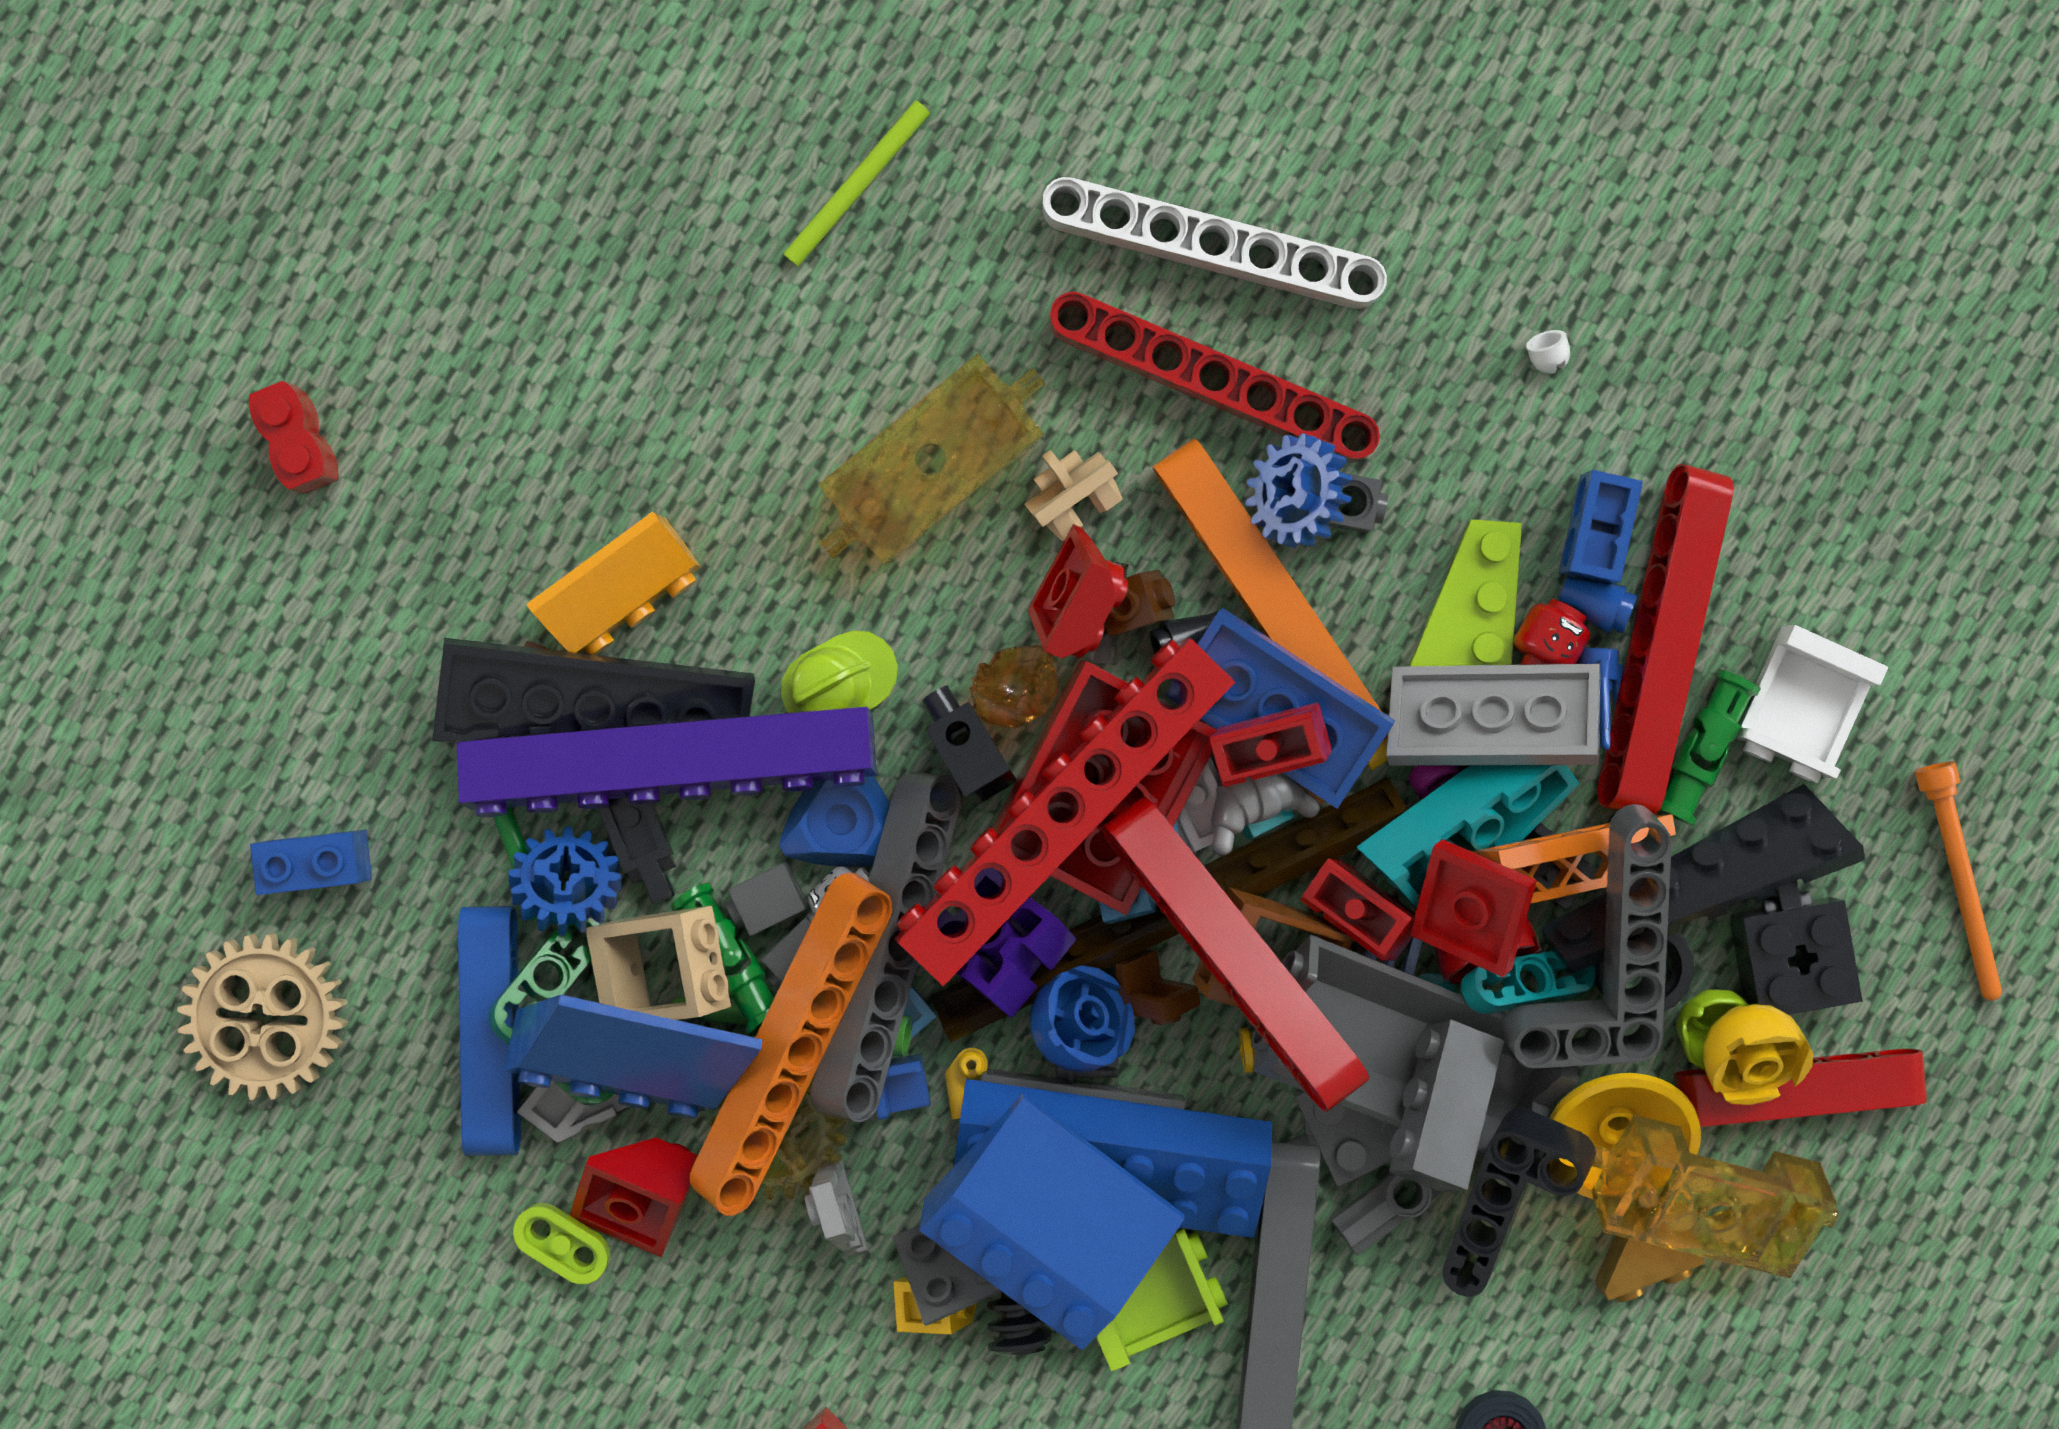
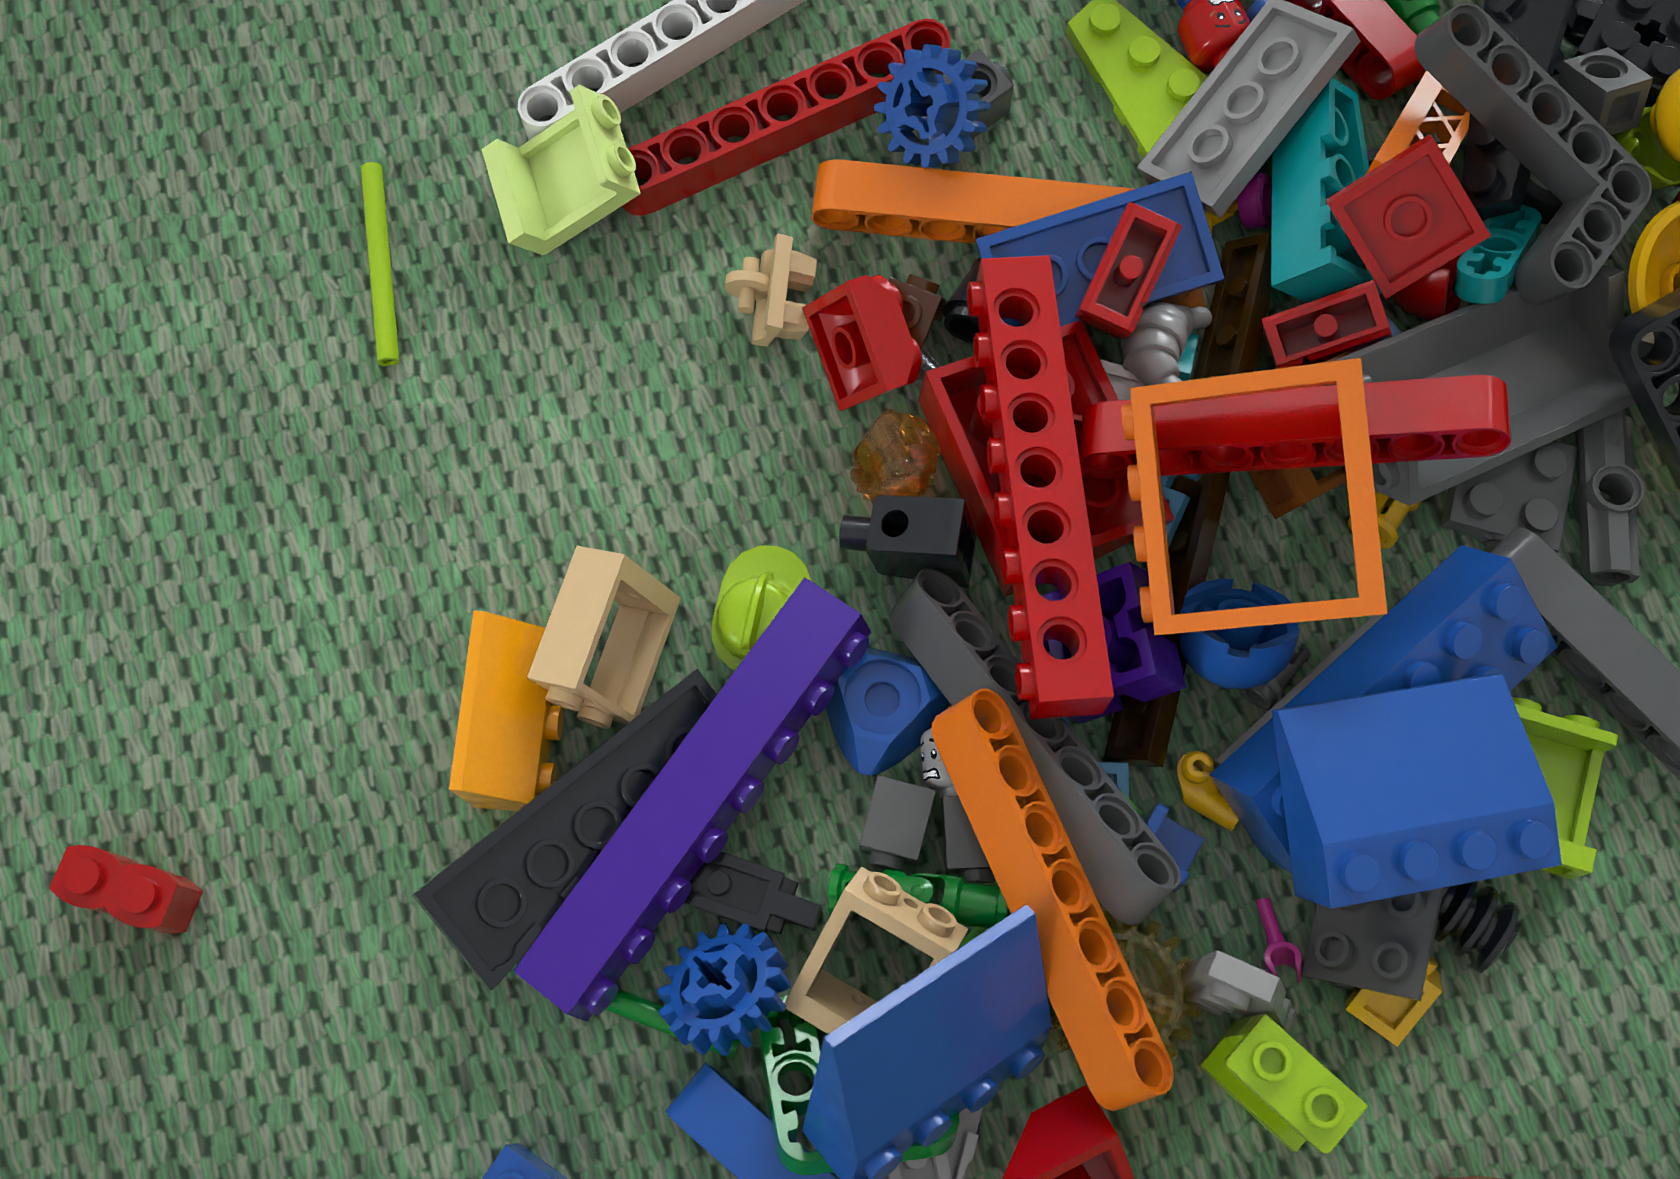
camera: 45 degrees left, 15 degrees down
(716, 604) = (632, 647): none -> tan window
(798, 1282) = (1282, 1084): none -> lime panel
(885, 494) = (638, 428): clear yellow brick -> none
(898, 1208) = (1278, 950): none -> dark pink hand
(1025, 264) = (563, 175): none -> yellowish green panel
(1150, 994) = (1271, 559): reddish brown bracket -> none
(1271, 975) = (1146, 486): none -> orange window
(1445, 1106) = (1568, 383): brick -> none
(1710, 978) = (1607, 88): none -> dark grey brick

